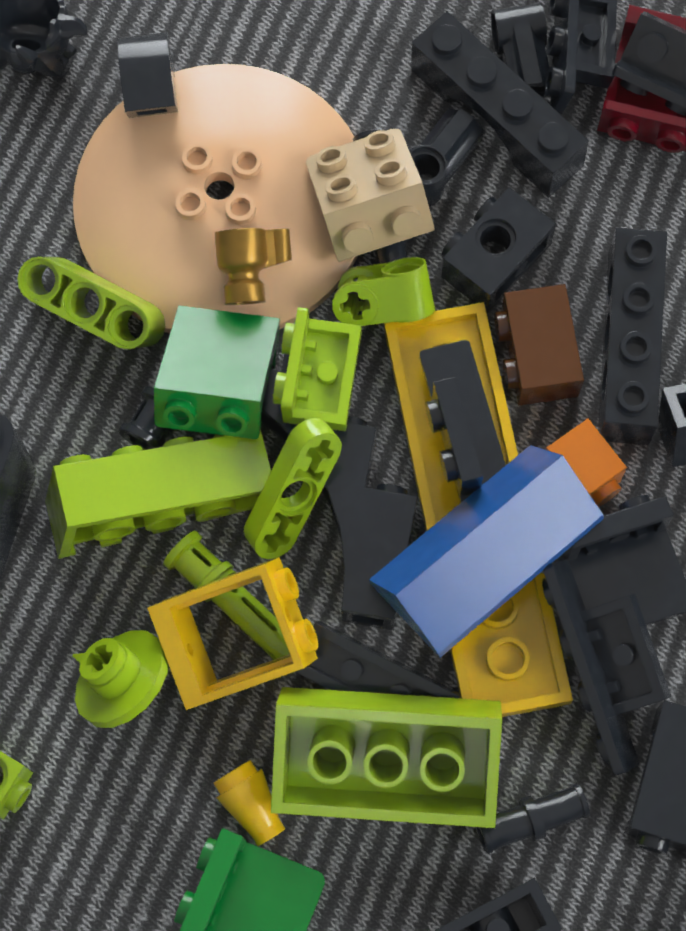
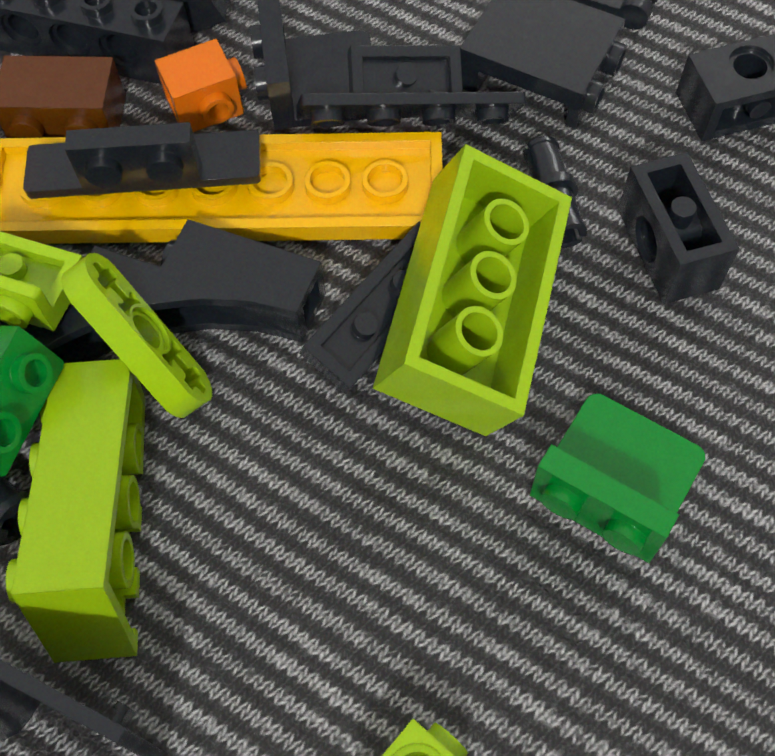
camera: 80 degrees left, 10 degrees down
(119, 677) = (320, 580): lime piece -> none
(186, 649) = (317, 349): yellow window -> none
(202, 567) = (225, 455): lime pin -> none
(248, 800) = (493, 459): yellow cone -> none
(488, 548) = (266, 151): slope -> none

